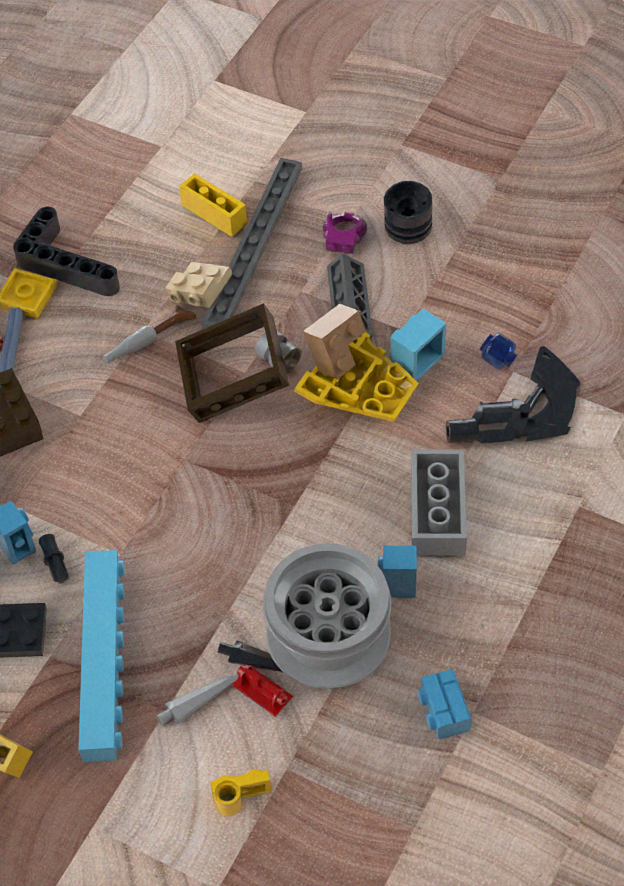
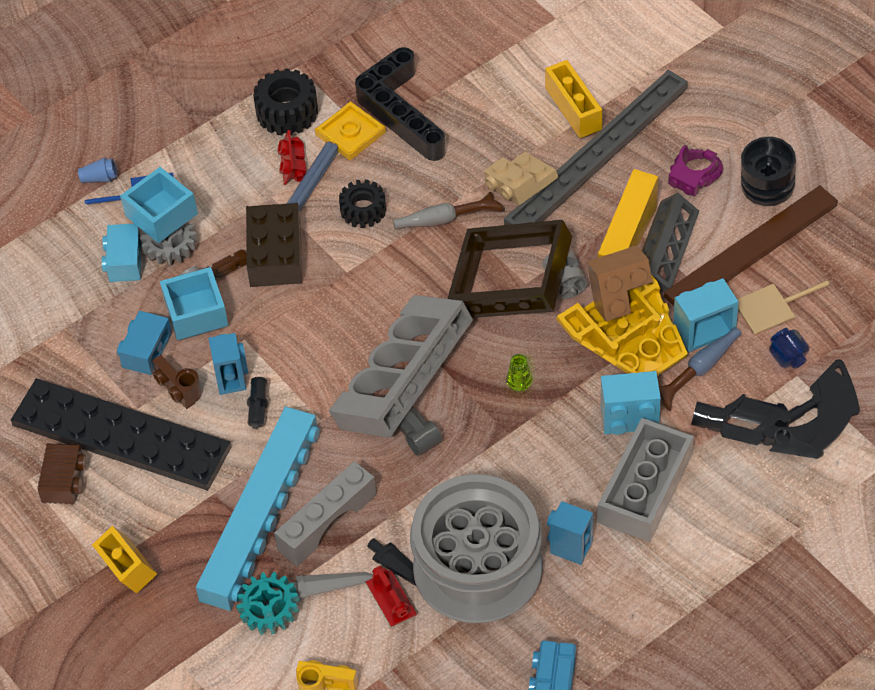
camera: 25 degrees right, 0 degrees up
(71, 361) = (366, 214): none -> black tyre
(142, 744) = (280, 603): none -> teal gear
(156, 655) = (303, 531): none -> light grey arch
(176, 529) = (378, 416): none -> light grey fence
(216, 533) = (419, 433): none -> dark grey piece
(280, 450) = (519, 374): none -> clear neon green cone
(312, 284) = (632, 214): none -> yellow slope
(390, 439) = (627, 400): none -> medium azure piece
(422, 278) = (758, 242): none -> reddish brown tile
(429, 391) = (699, 365): none -> sand blue piece
(464, 325) = (768, 308): none -> tan piece

